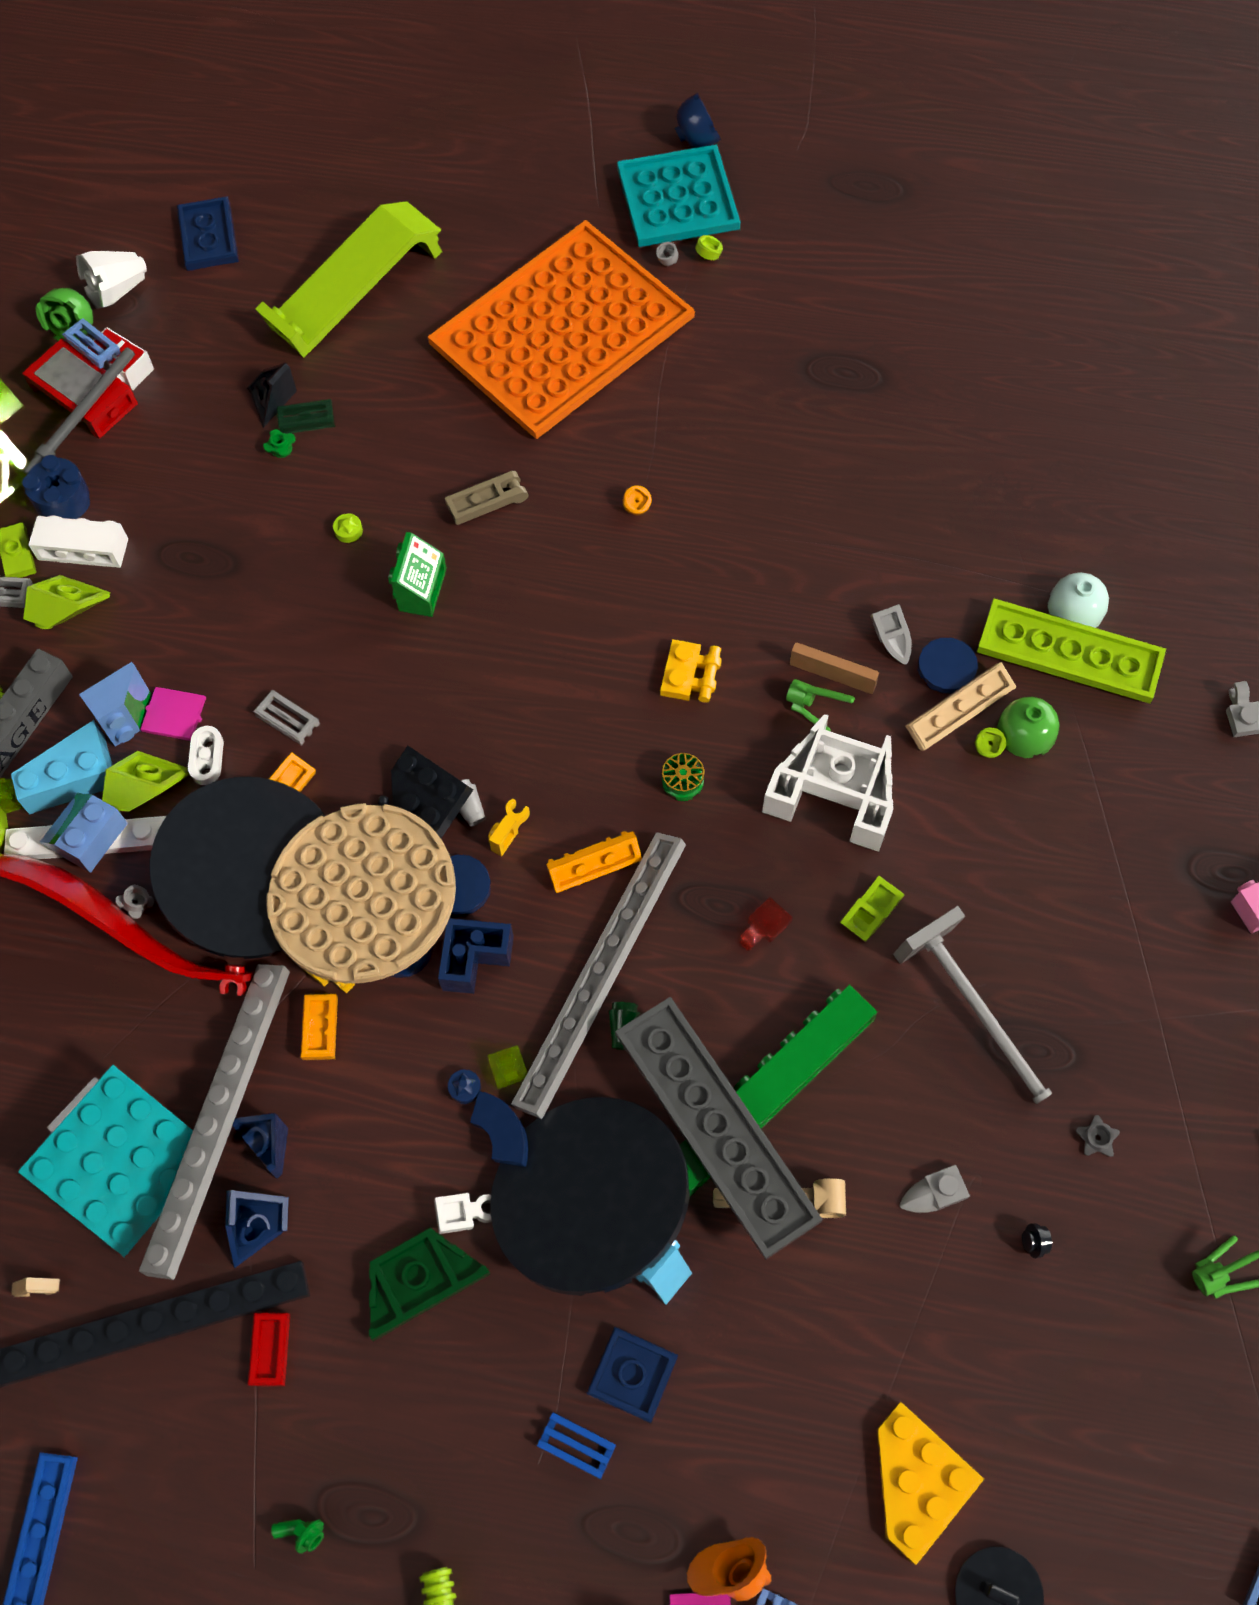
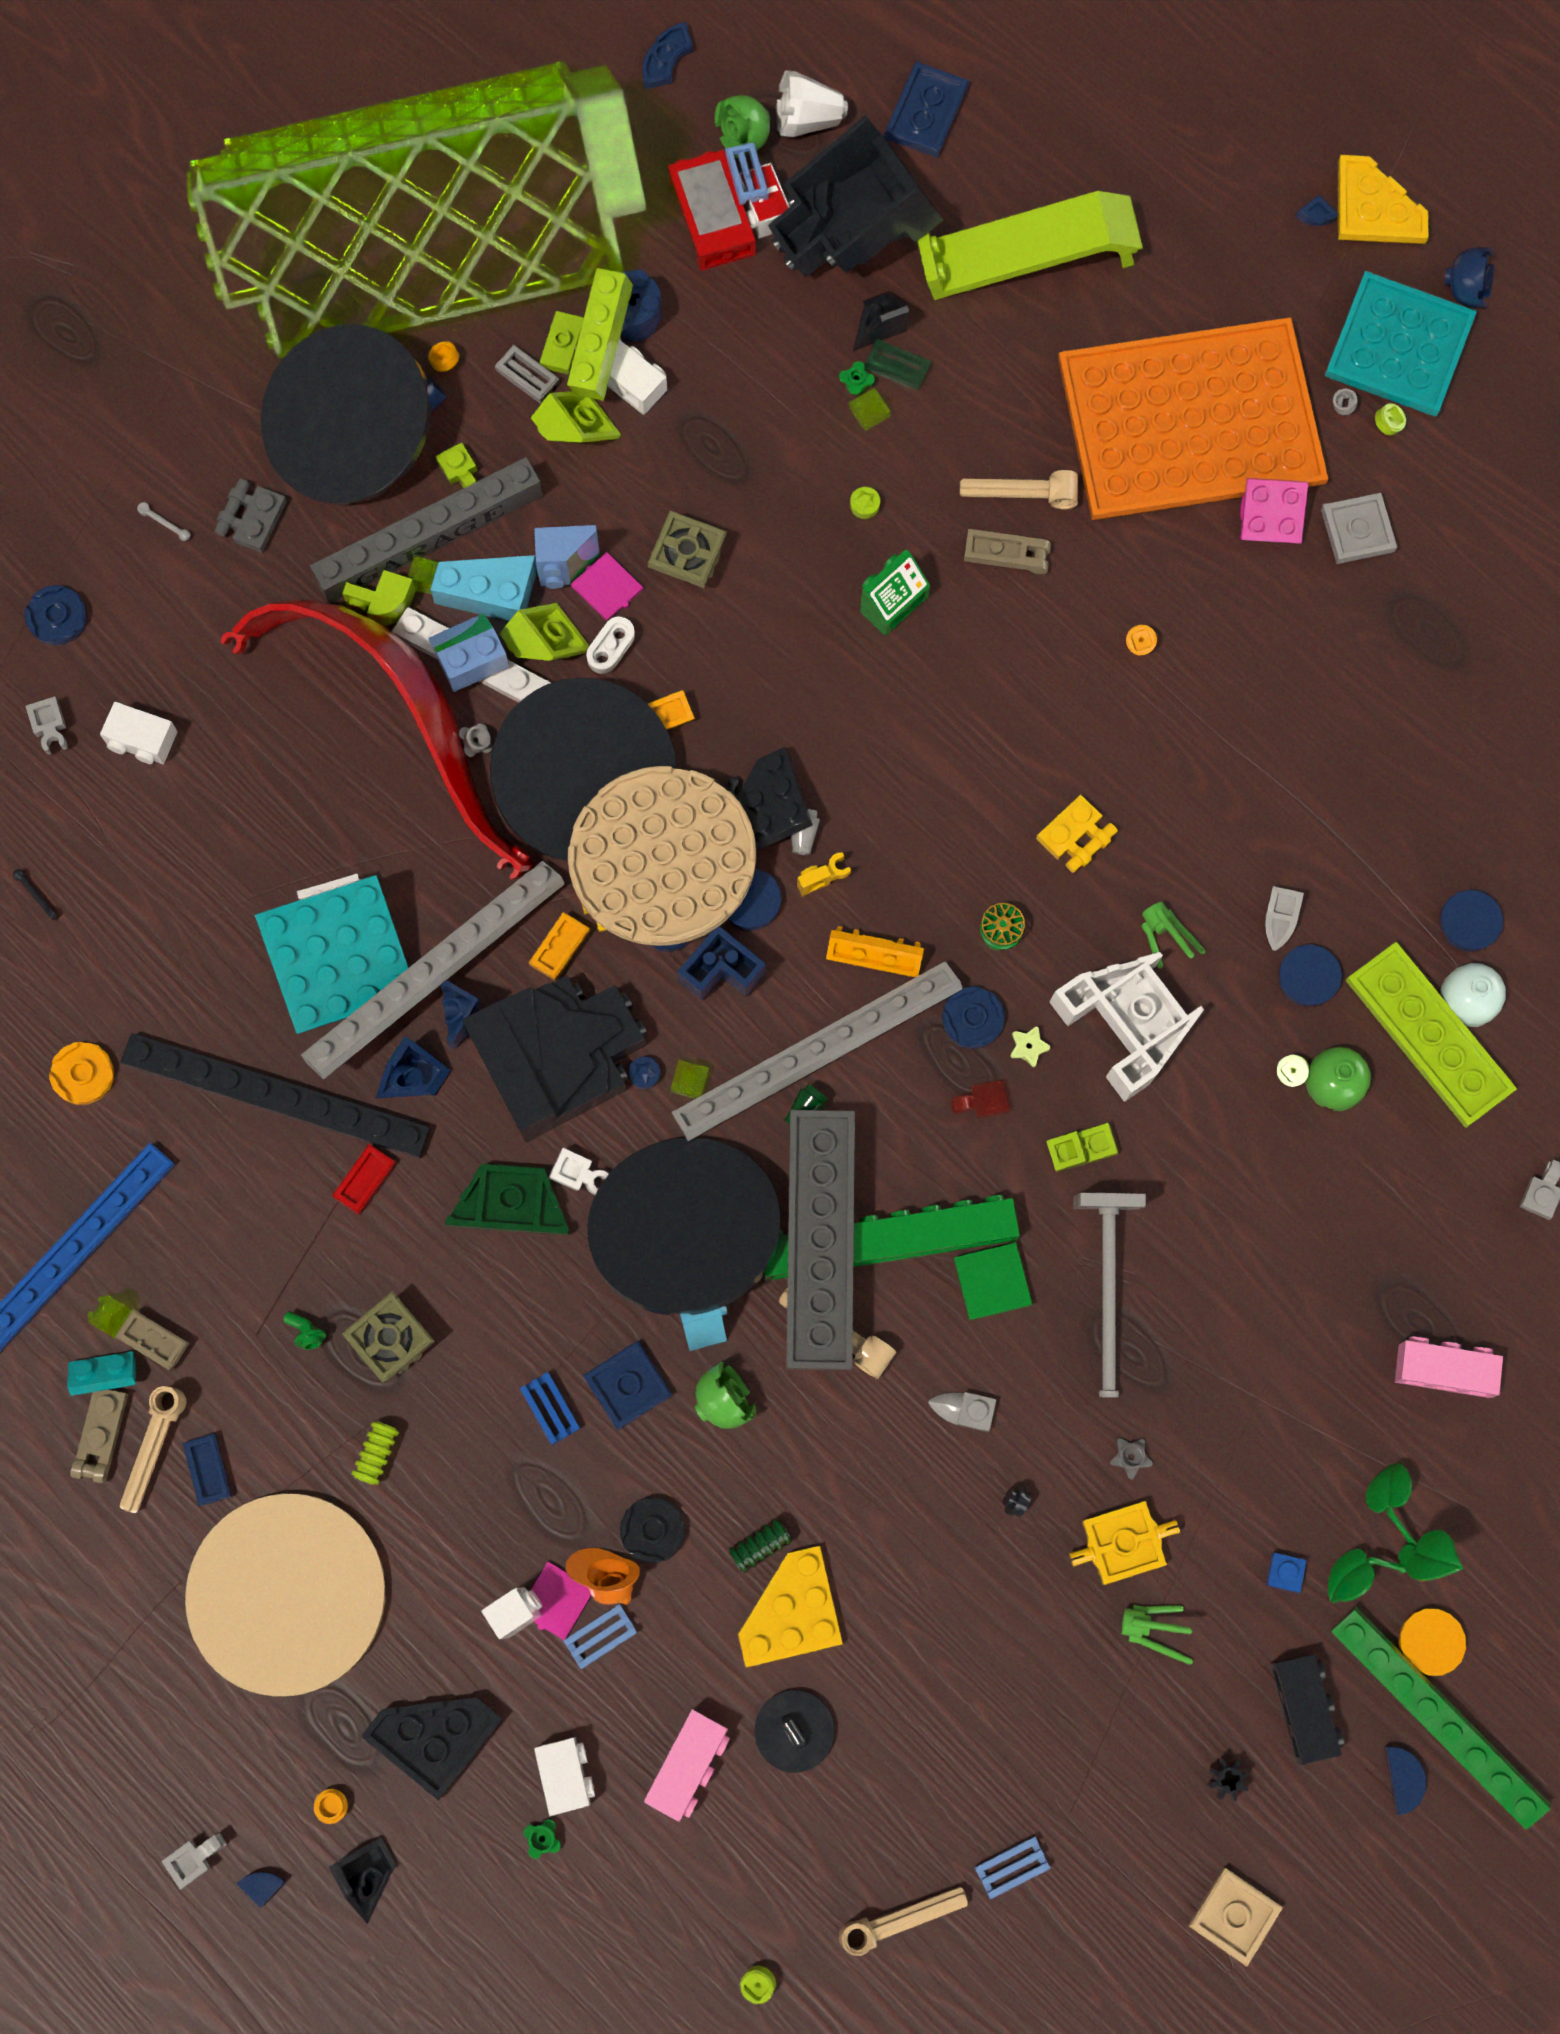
camera: 30 degrees right, 10 degrees up
(35, 1285) = (211, 1008): tan tile -> none
(42, 518) = (600, 334): none -> lime brick
(81, 409) = (644, 262): dark grey bar -> none
(191, 318) = (850, 204): none -> black panel
(221, 644) = (685, 551): none -> olive piece
(305, 459) = (869, 409): none -> clear neon green tile
(305, 730) = (708, 675): light grey tile -> none
(373, 1118) = (556, 1052): none -> black panel
(385, 1484) = (389, 1339): none -> olive piece
(495, 431) = (1059, 489): none -> tan axle
(504, 1129) = (652, 1127): dark blue tile -> none
(553, 146) = (1317, 213): none -> dark blue tile
(592, 119) = (1375, 205): none -> yellow plate
(669, 352) = (1273, 510): none -> plate
(710, 863) = (973, 1017): none -> dark blue tile
(726, 1326) = (722, 1398): none -> bright green cylinder
(741, 331) = (1358, 528): none -> light grey plate
(744, 1495) = (652, 1530): none -> black tile
(768, 864) = (1023, 1052): none -> yellowish green plate
(834, 668) = (1204, 913): medium nougat tile -> none
(849, 1439) = (760, 1545): none -> dark green piece
(880, 1067) = (992, 1281): none -> green tile
(960, 706) = (1292, 1021): tan tile -> none
(1034, 551) = (1471, 920): none -> dark blue tile
(1149, 1214) = (1124, 1543): none -> yellow plate

